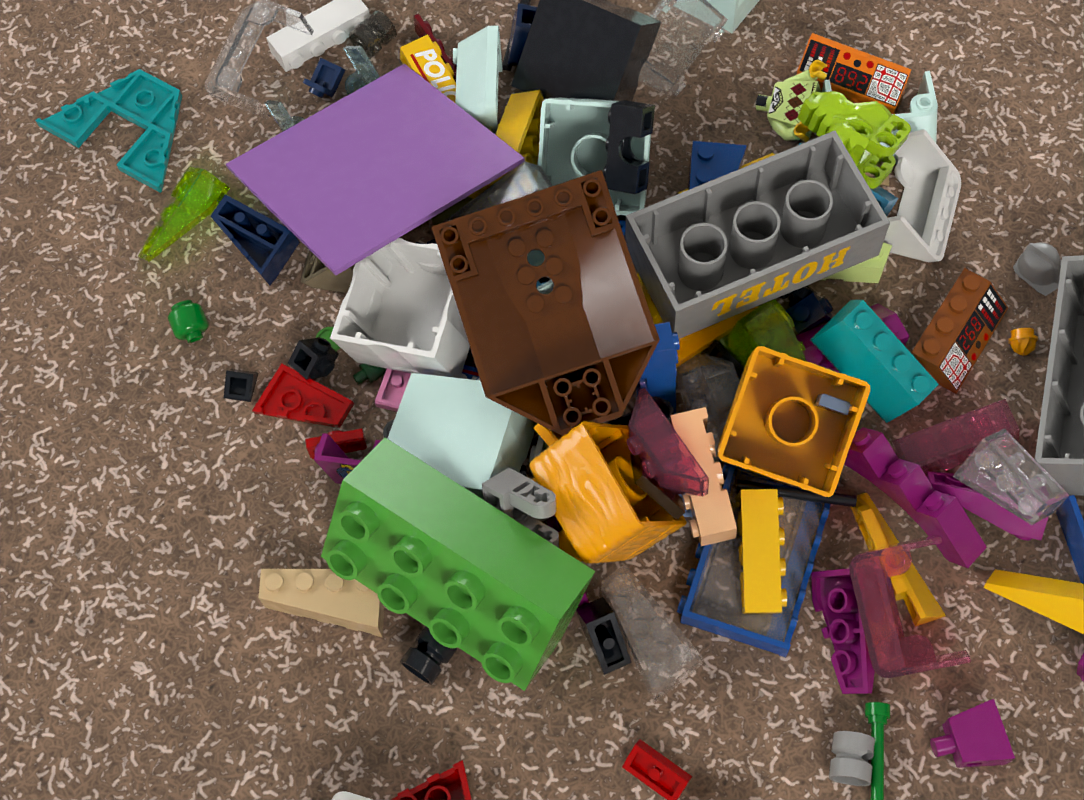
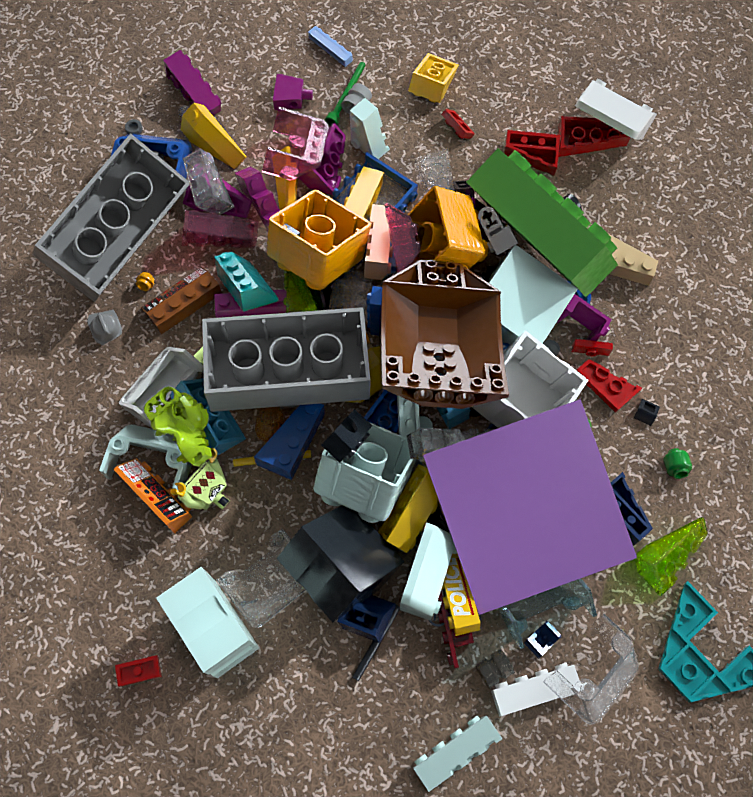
camera: 165 degrees left, 5 degrees up
(313, 358) = (597, 404): black brick -> none
(509, 754) = (537, 148): none -> red wedge
(801, 680) = (366, 130): none -> light aqua wedge

